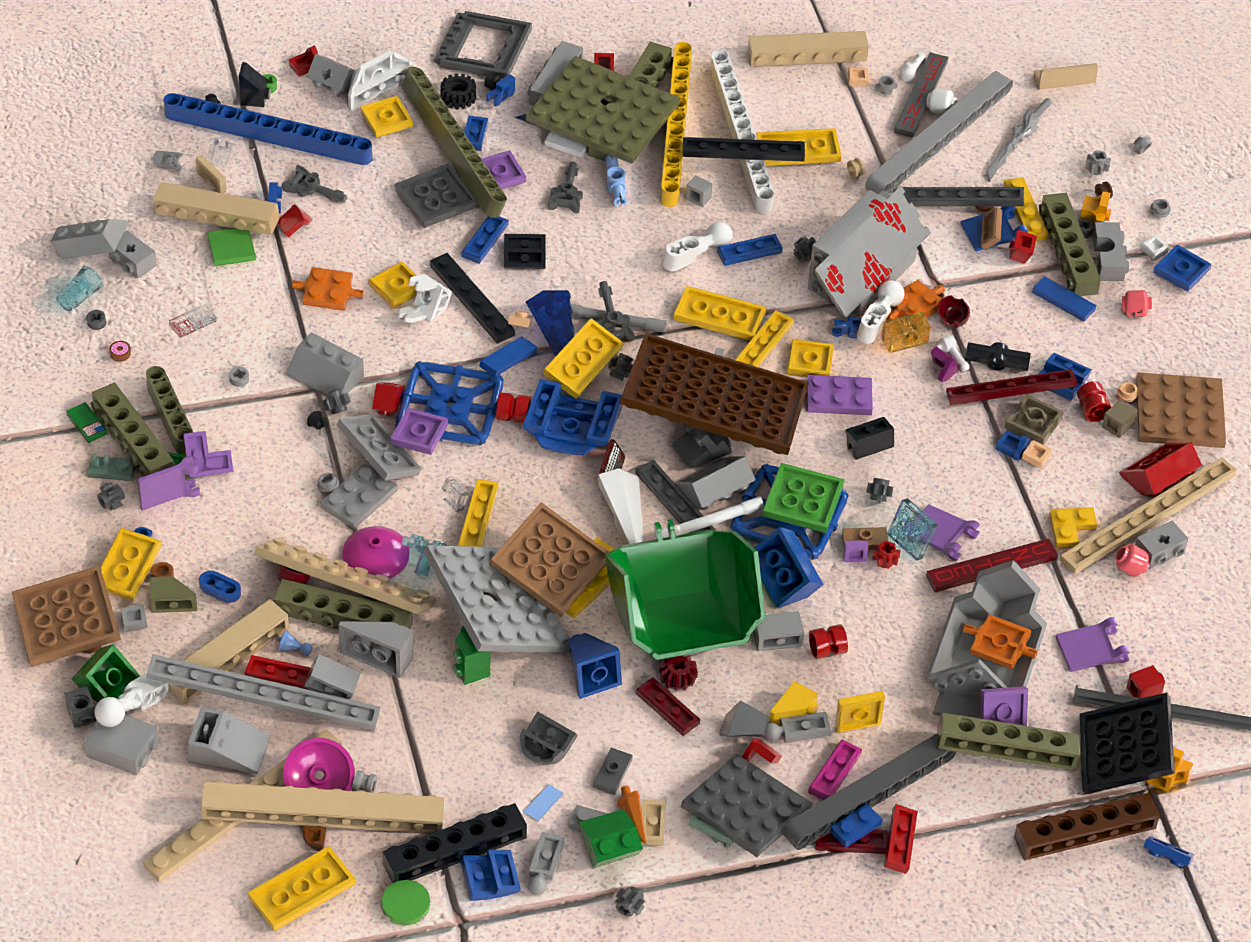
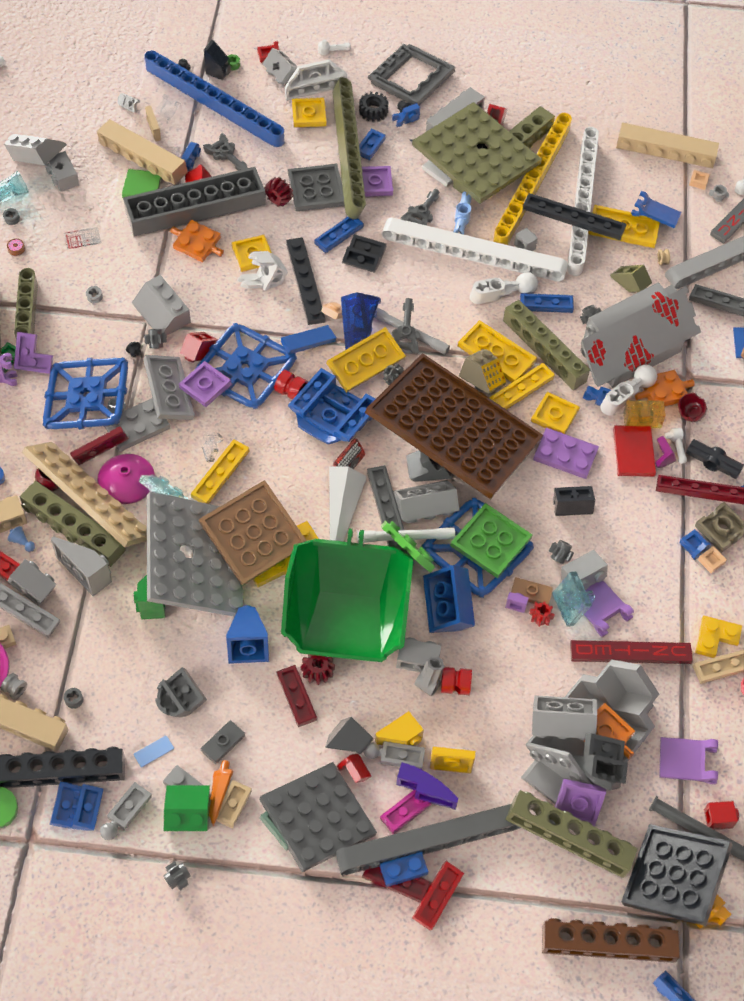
camera: 20 degrees right, 10 degrees up
(279, 488) = (92, 401): none -> blue plate
(306, 246) = (194, 201): none -> dark grey brick
(333, 525) = (99, 445): none -> dark red tile
(368, 40) = (324, 47): none -> white piece
(397, 210) = (278, 191): none -> dark red gear
(432, 784) = (76, 702): none -> dark grey bush
(644, 214) = (474, 249): none -> white beam
(717, 334) = (483, 371): none -> dark tan slope
(723, 522) = (409, 544): none -> bright green plate
(770, 291) = (546, 345): none -> olive brick
(800, 645) = (429, 678): none -> light grey piece
(827, 121) = (656, 211): none -> blue flag
(832, 198) = (632, 277): none -> olive slope
(845, 744) = (426, 786): none -> dark purple slope
(910, 372) = (634, 451): none -> red tile
(917, 491) = (589, 567): none -> light grey brick
(956, 638) = (564, 717): none -> light grey slope
(1013, 662) = (603, 761): none -> dark grey piece

